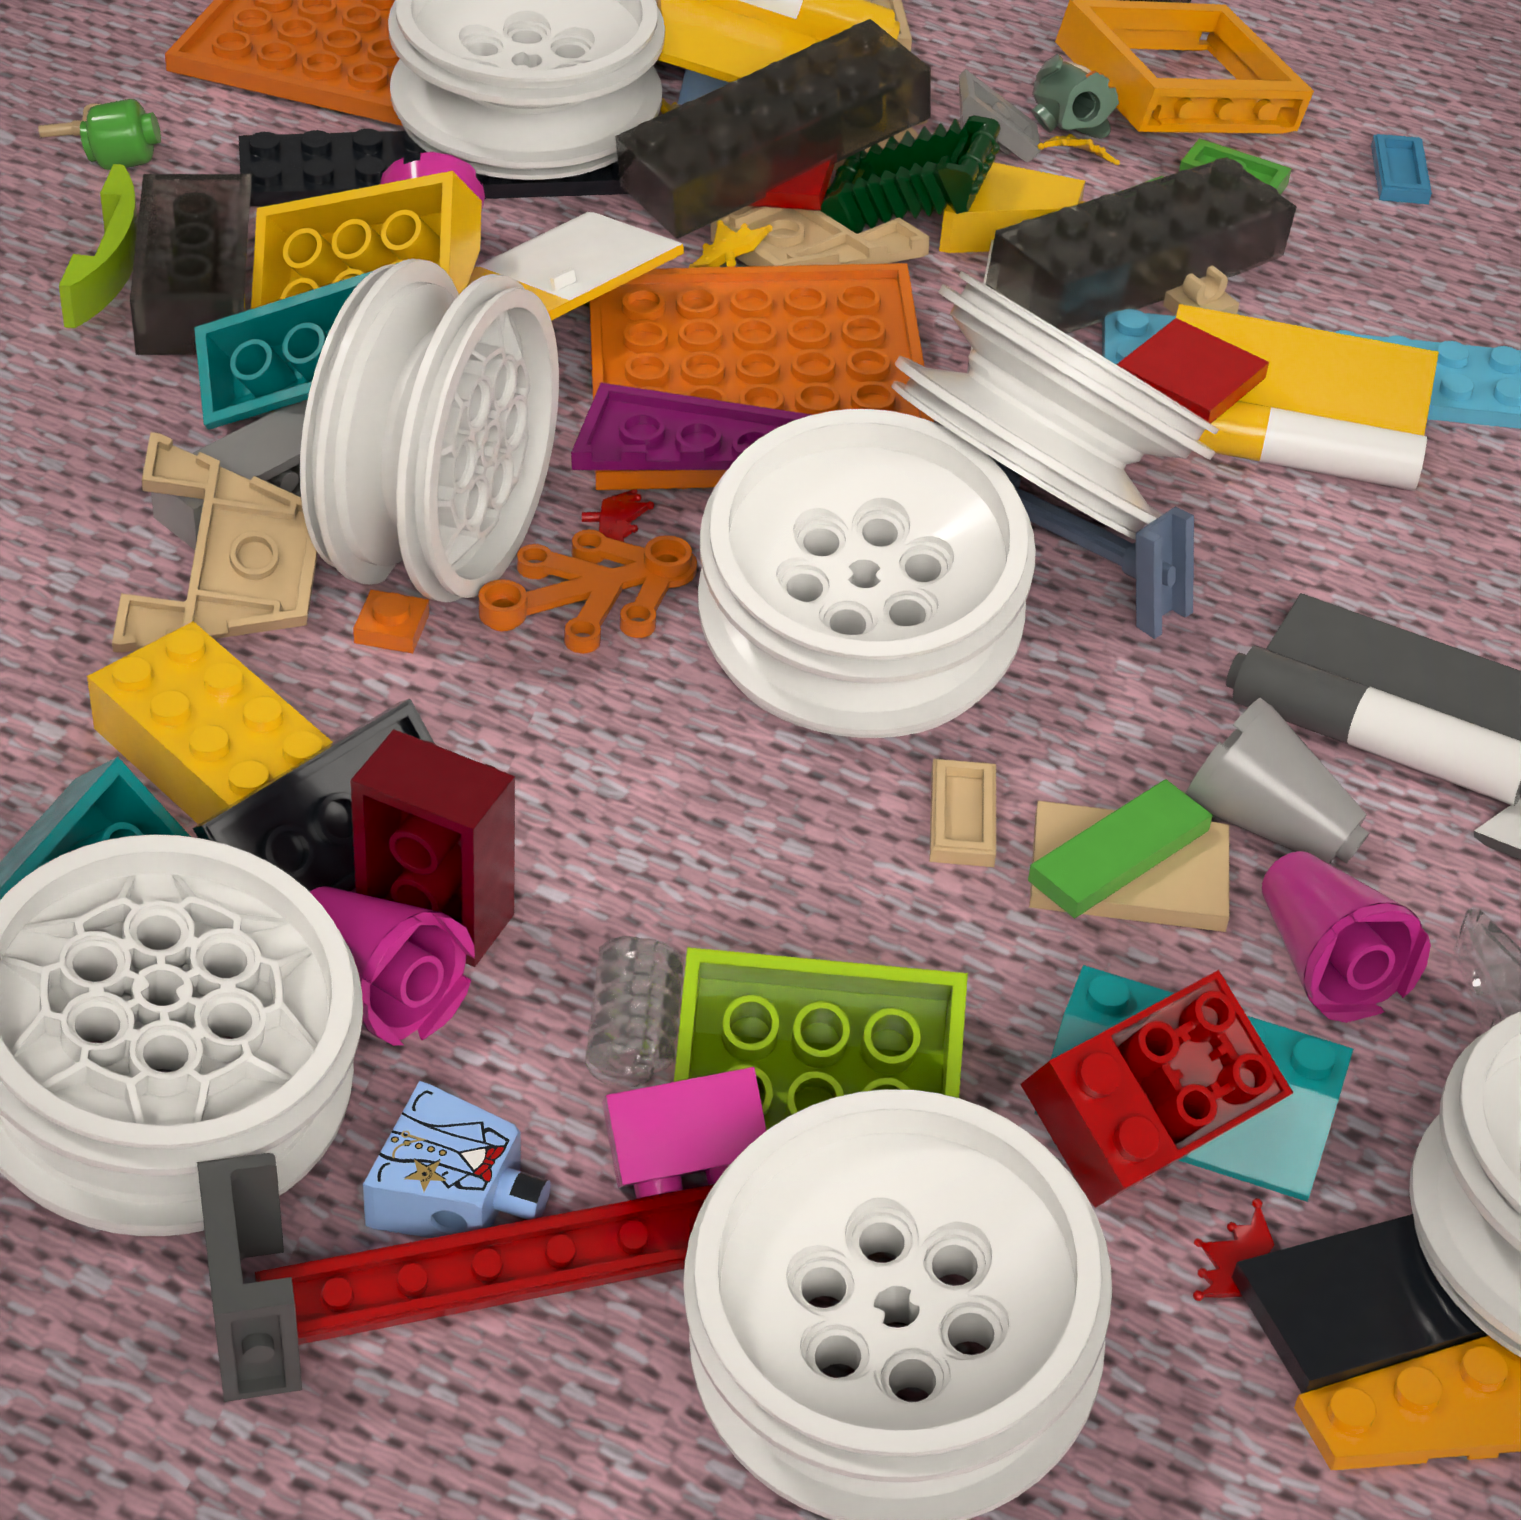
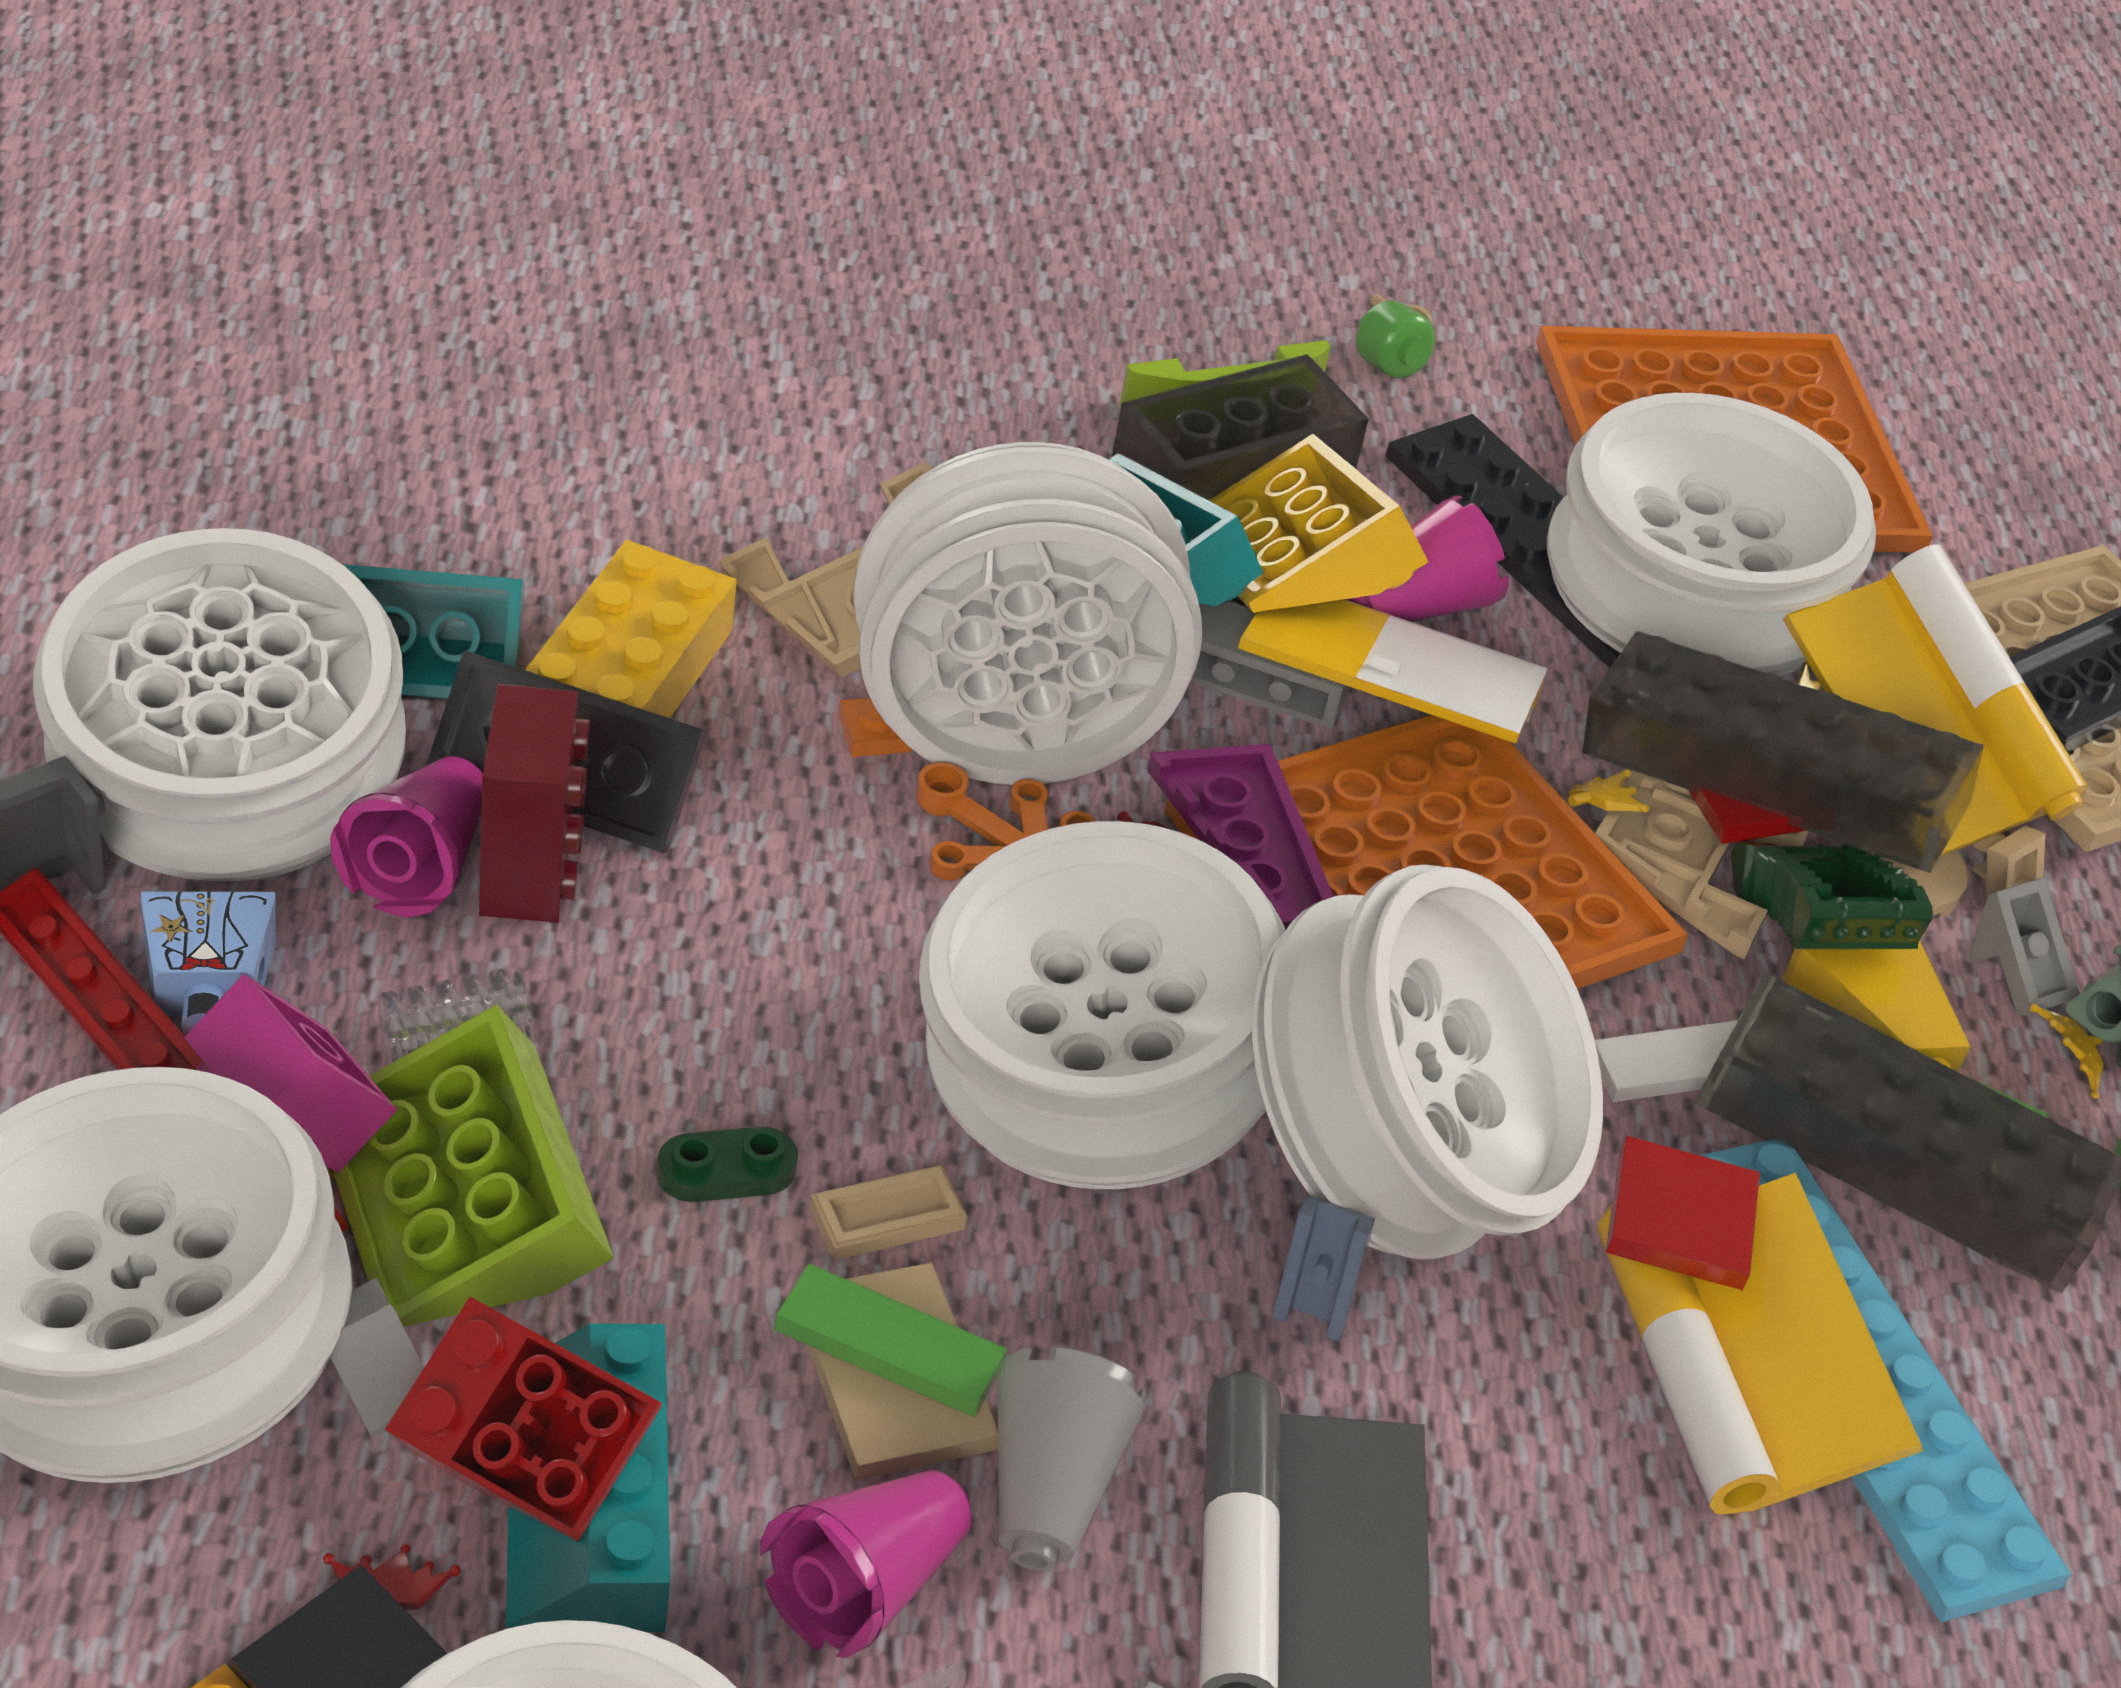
camera: 60 degrees right, 0 degrees up
(868, 879) = (727, 1164): none -> dark green plate
(1202, 293) = (1887, 1226): tan tile -> none

